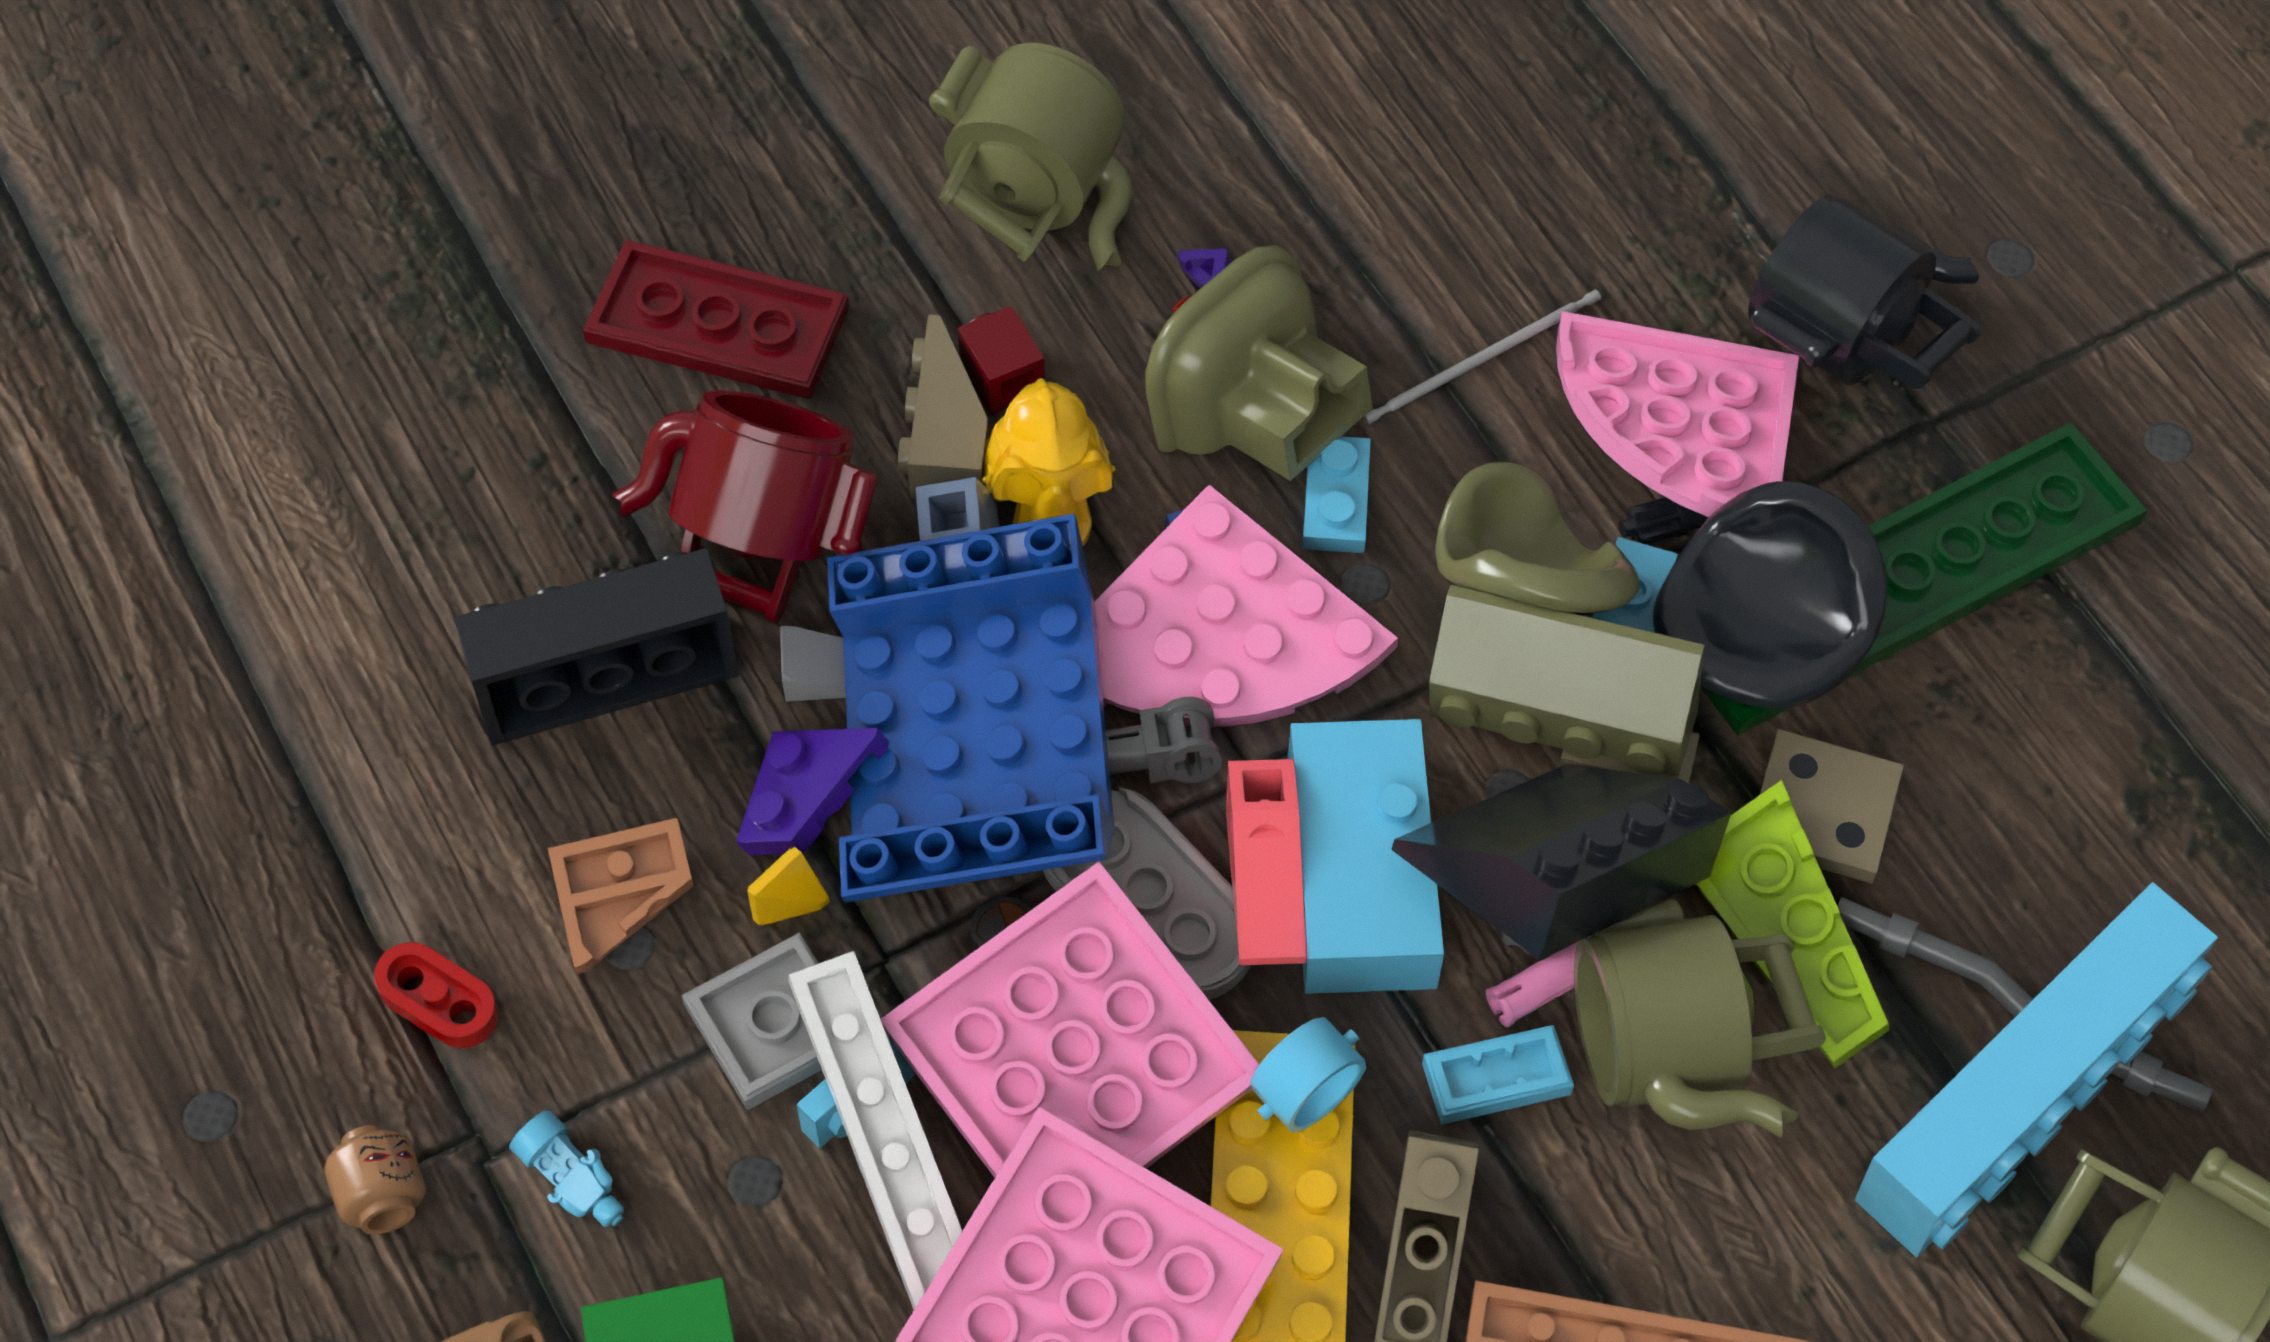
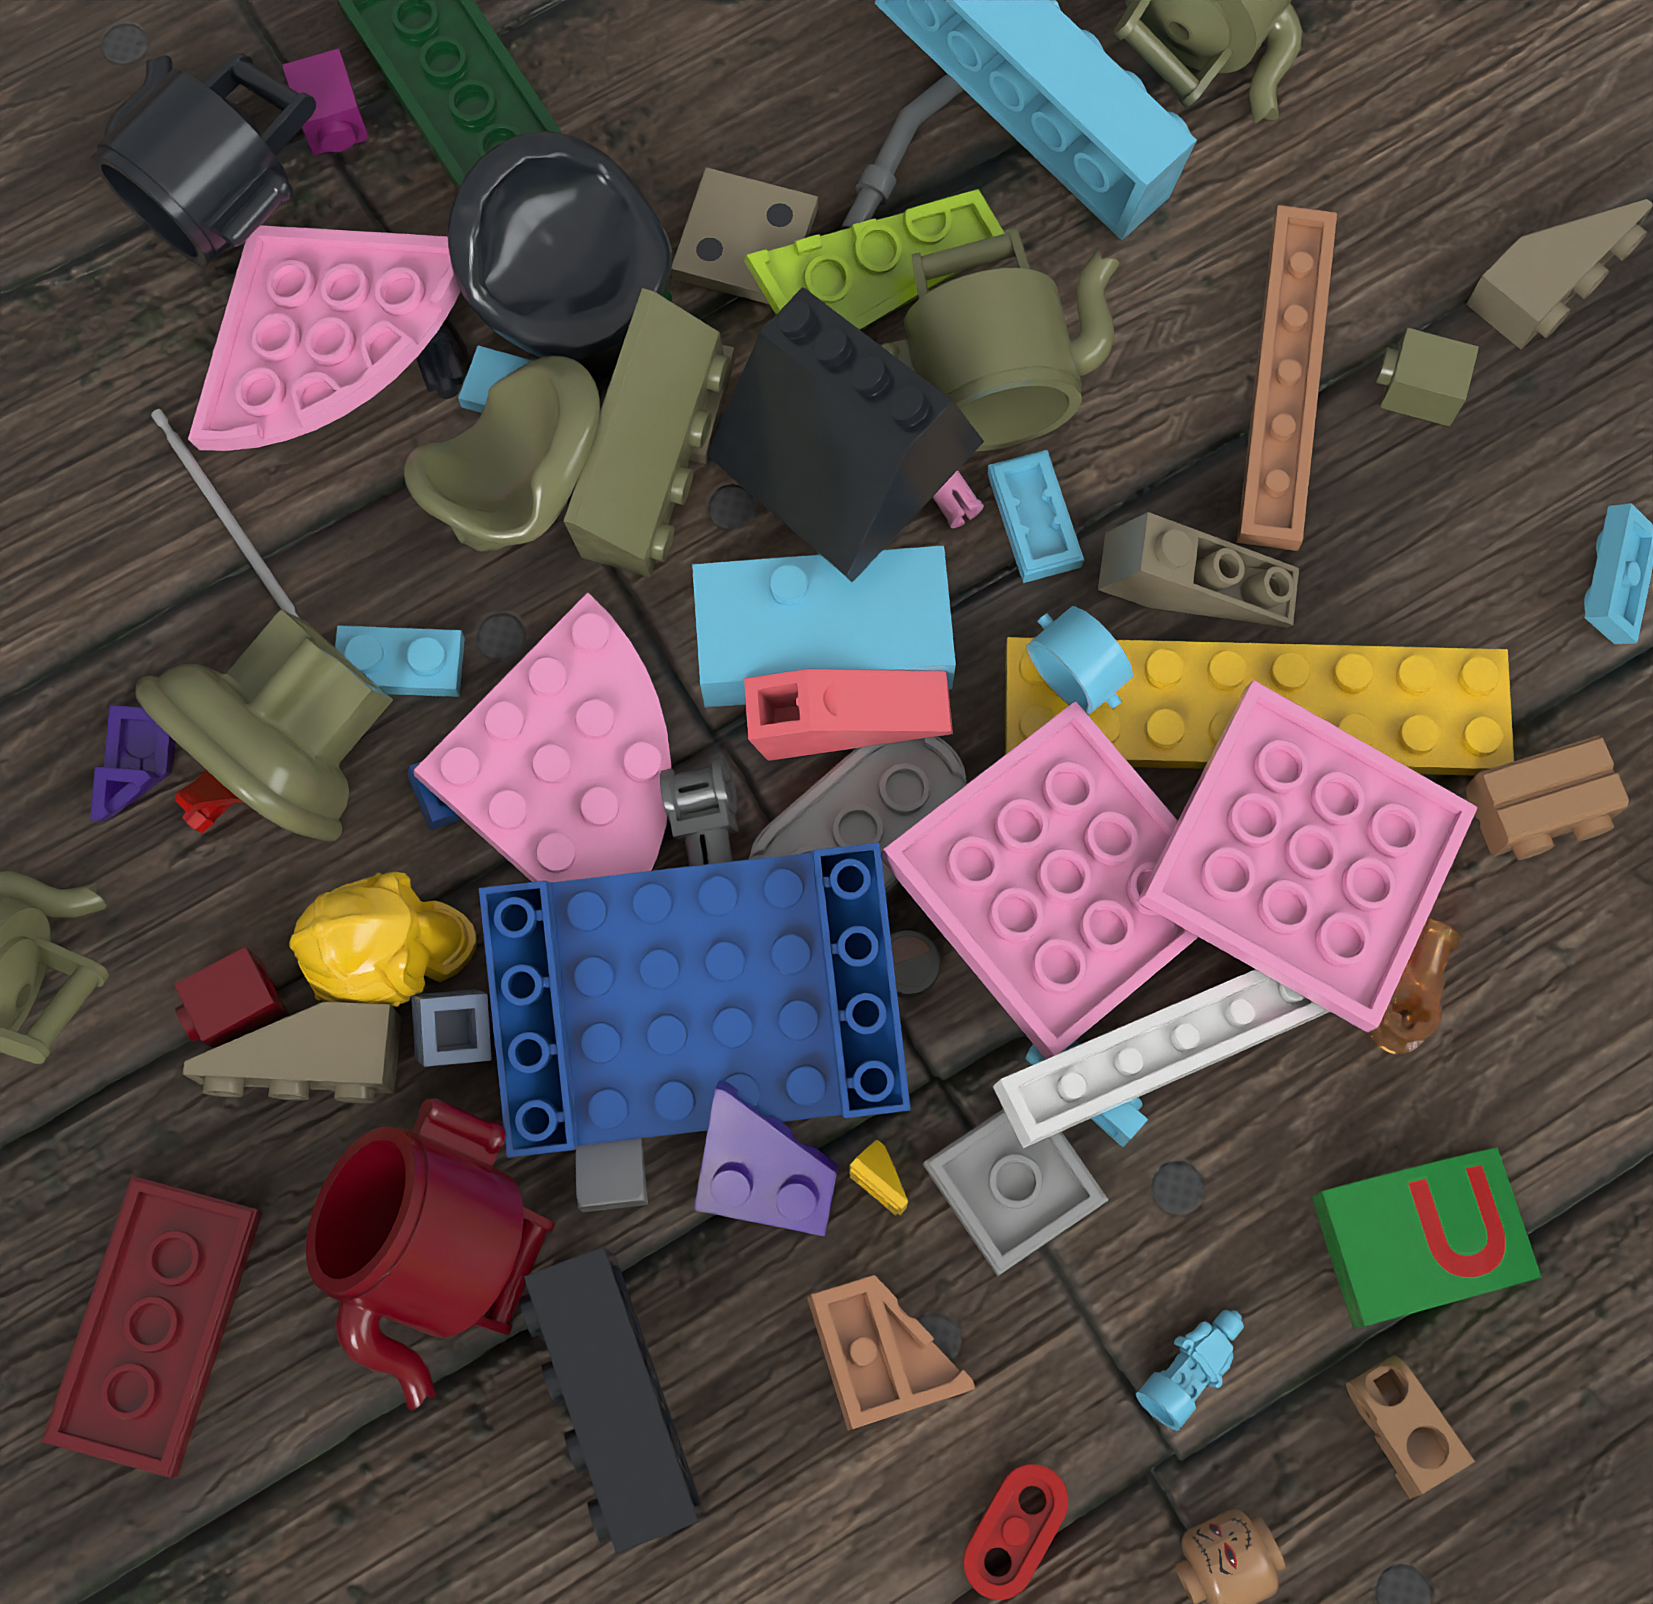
camera: 90 degrees left, 15 degrees up
(1946, 418) = (337, 116): none -> magenta brick

